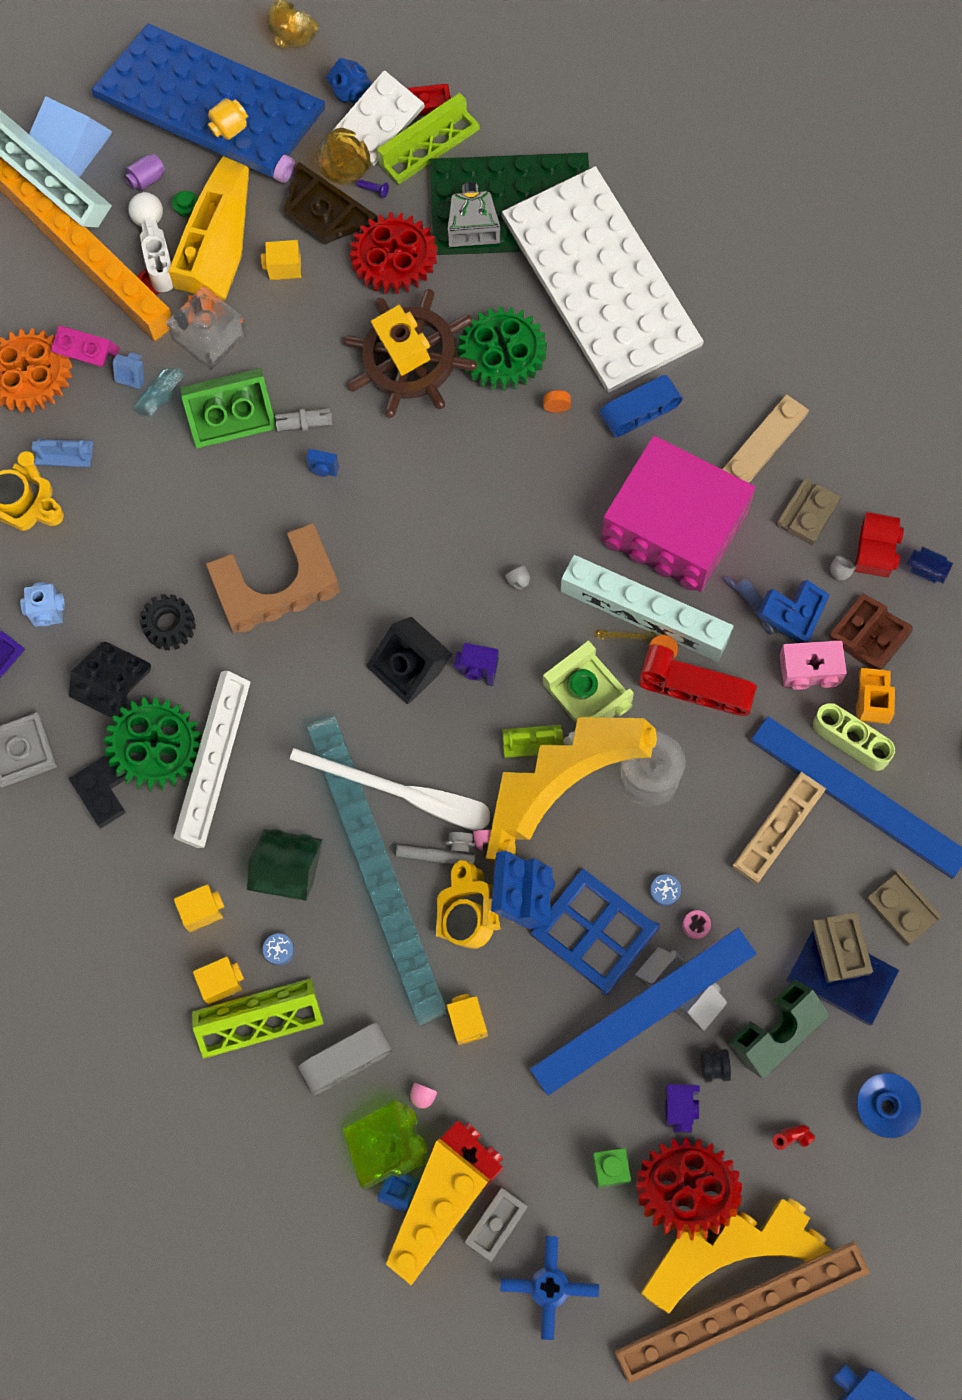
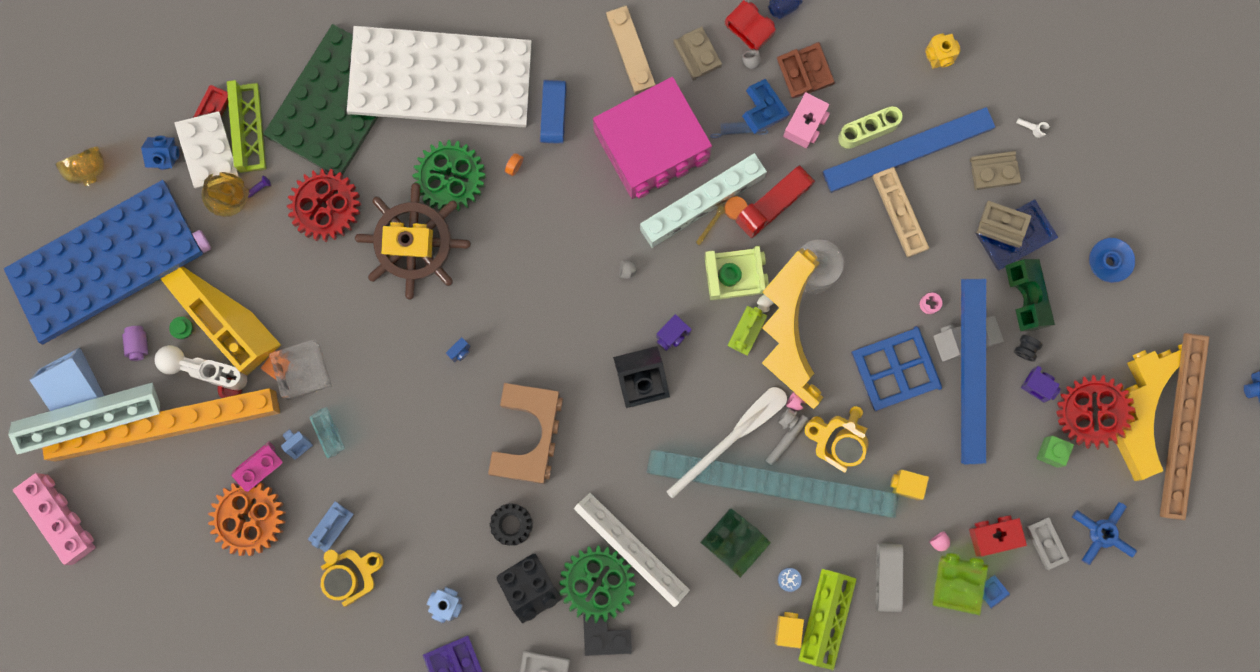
camera: 60 degrees left, 10 degrees up
(199, 907) = (732, 616): yellow brick -> none
(227, 119) = (140, 258): yellow head -> none
(228, 408) = (371, 390): bright green slope -> none
(282, 260) = (277, 285): yellow brick -> none
(303, 419) = (414, 343): light grey pin -> none
(323, 208) = (252, 232): dark brown wing -> none
(439, 1203) = (1020, 574): yellow wing -> none
(472, 218) = (337, 133): light grey torso -> none
(522, 890) = (850, 398): blue plate -> none
(665, 890) = (897, 308): medium blue tile -> none
(789, 1135) = (1094, 330): red arm -> none
(875, 696) = (856, 99): light orange brick -> none

